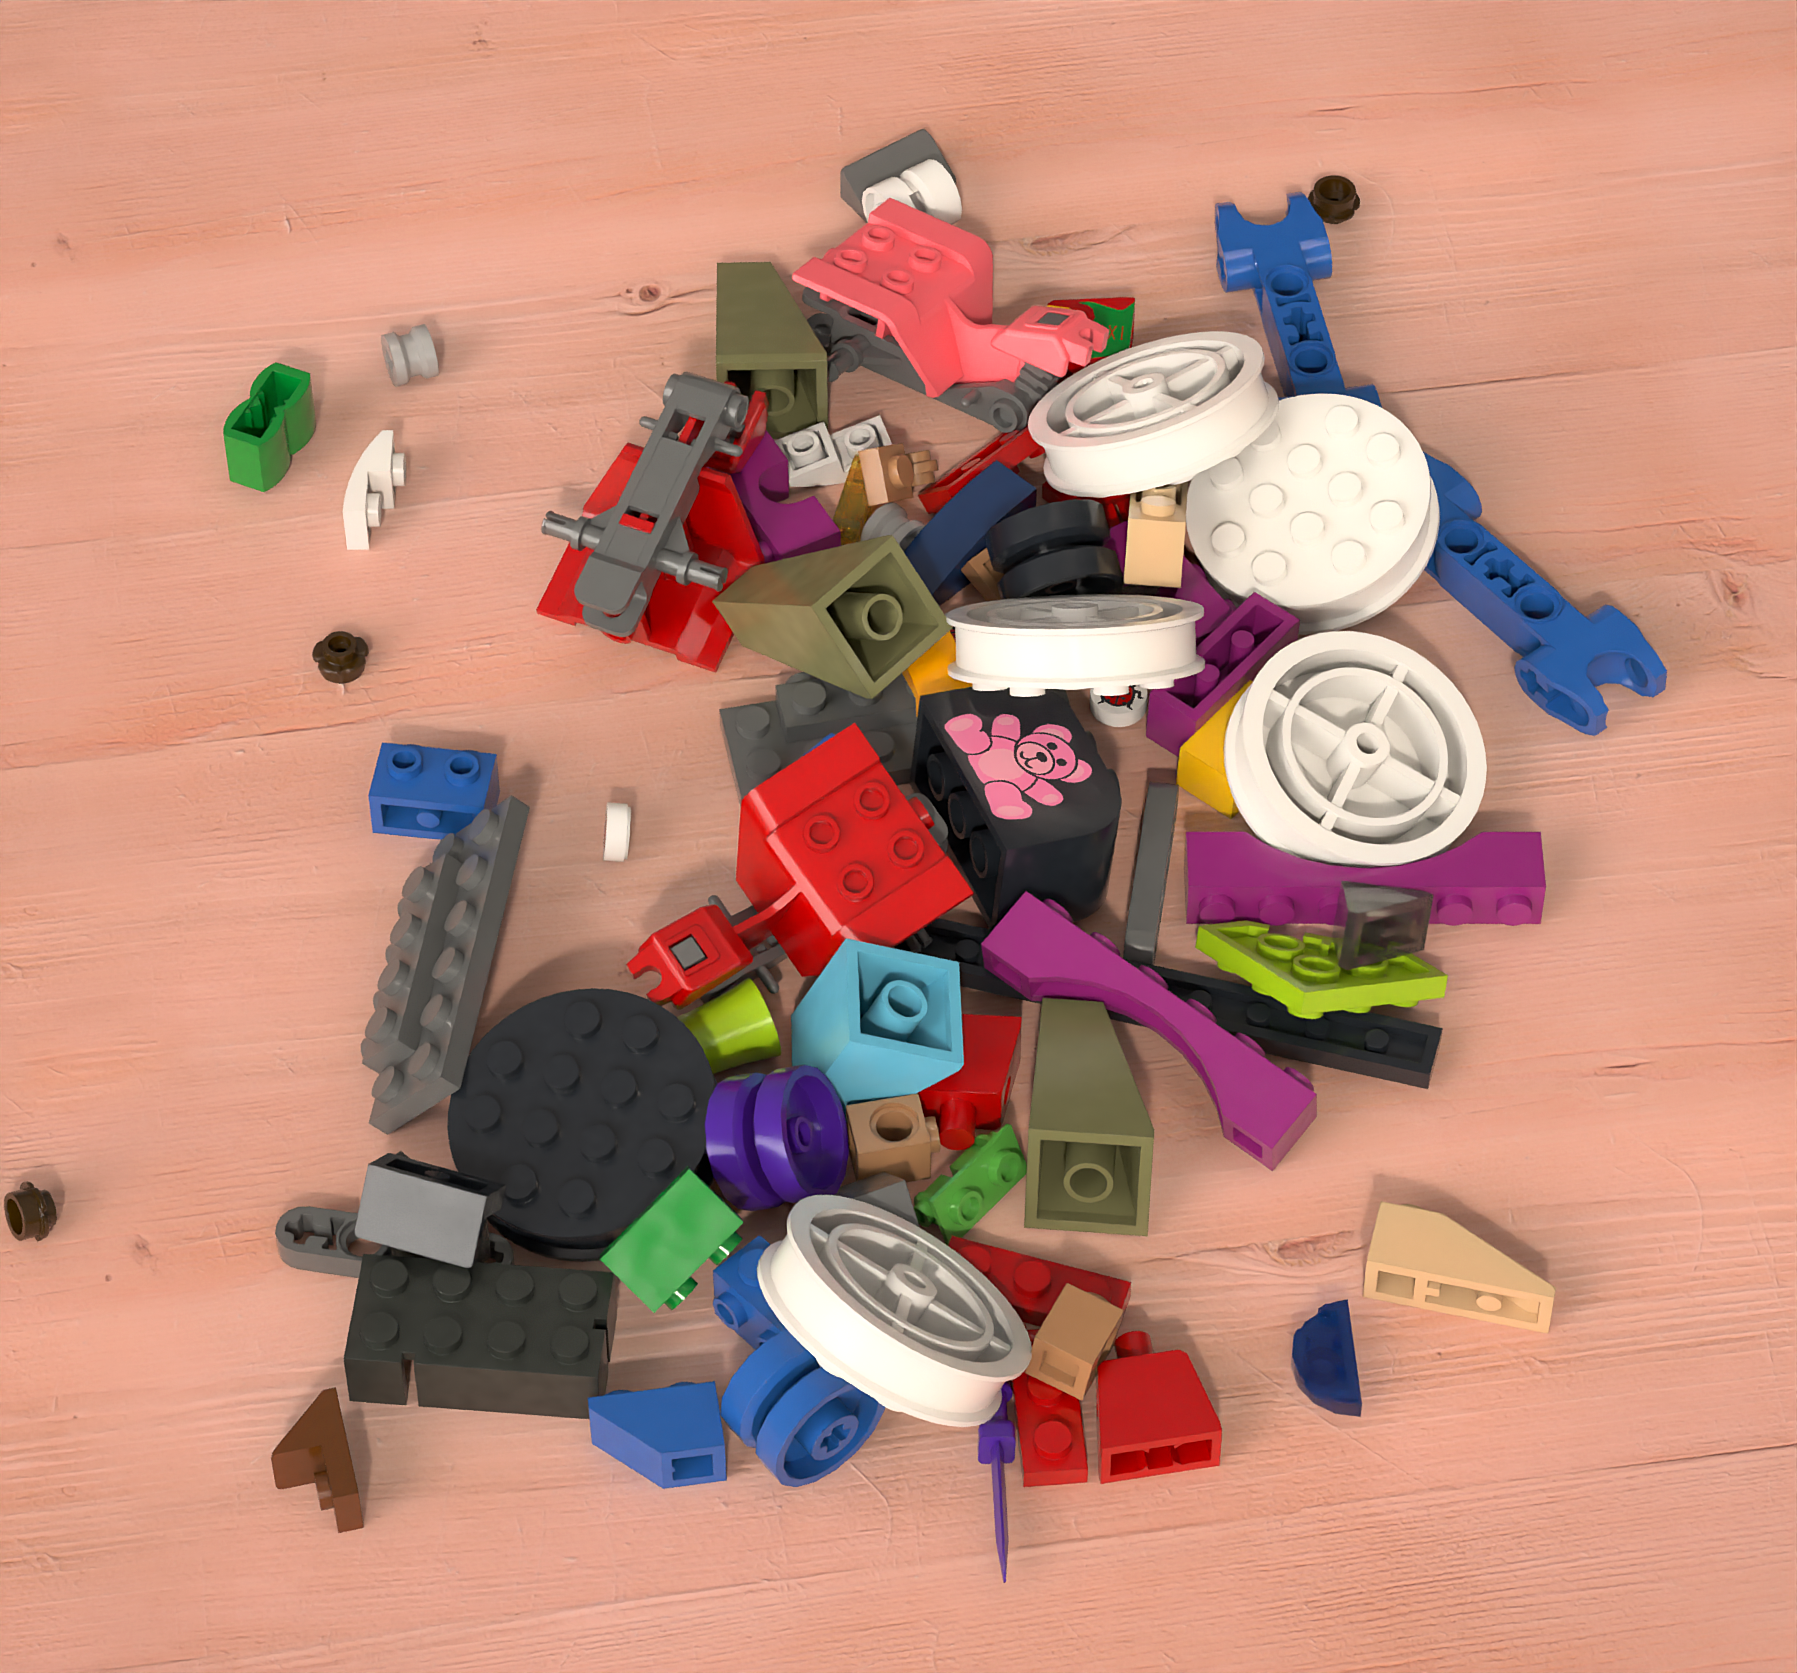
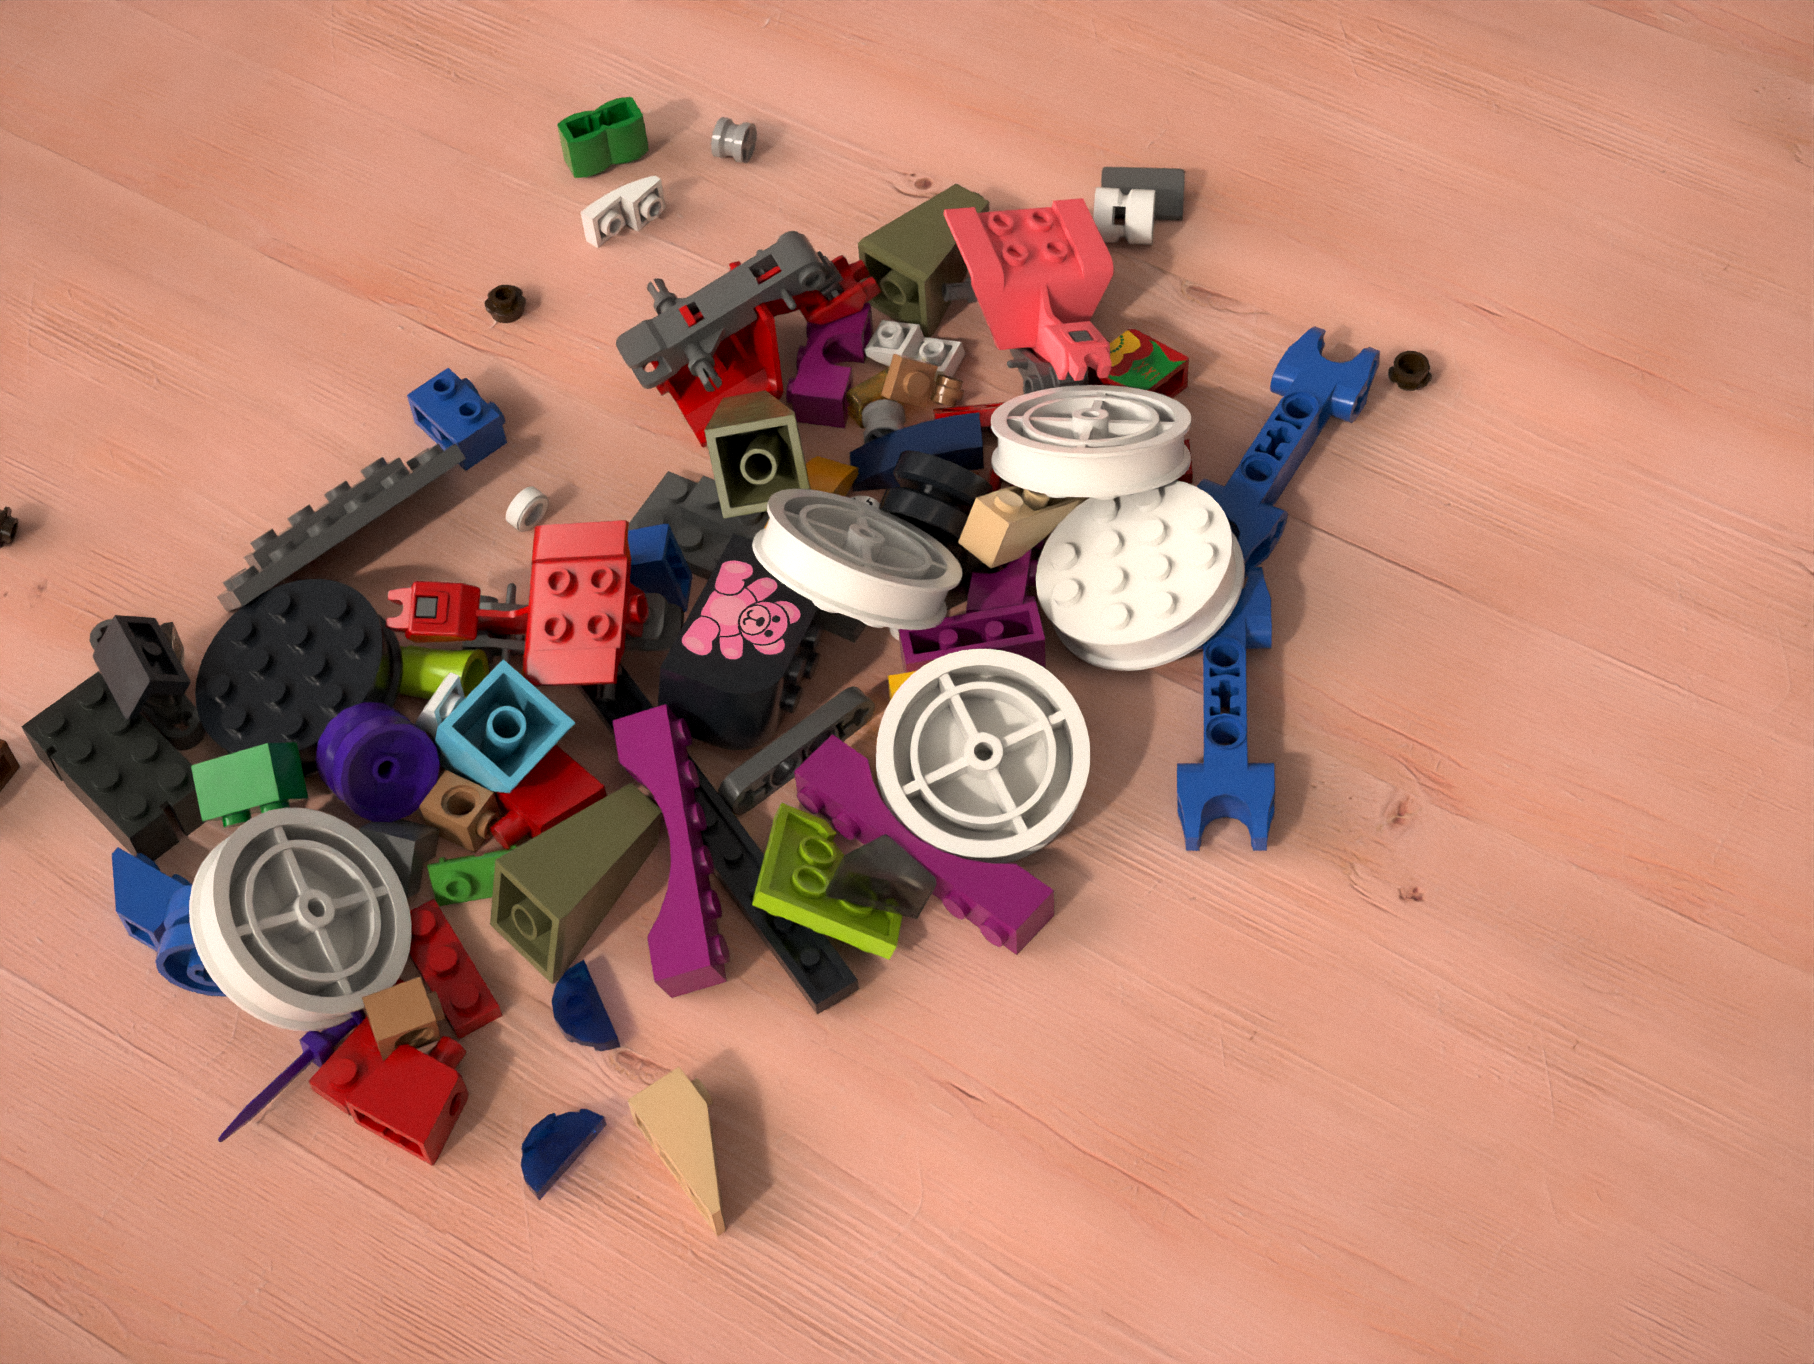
camera: 45 degrees right, 5 degrees up
(779, 1040) = (441, 705): none -> white slope
(1210, 1236) = (581, 1012): none -> clear blue plate

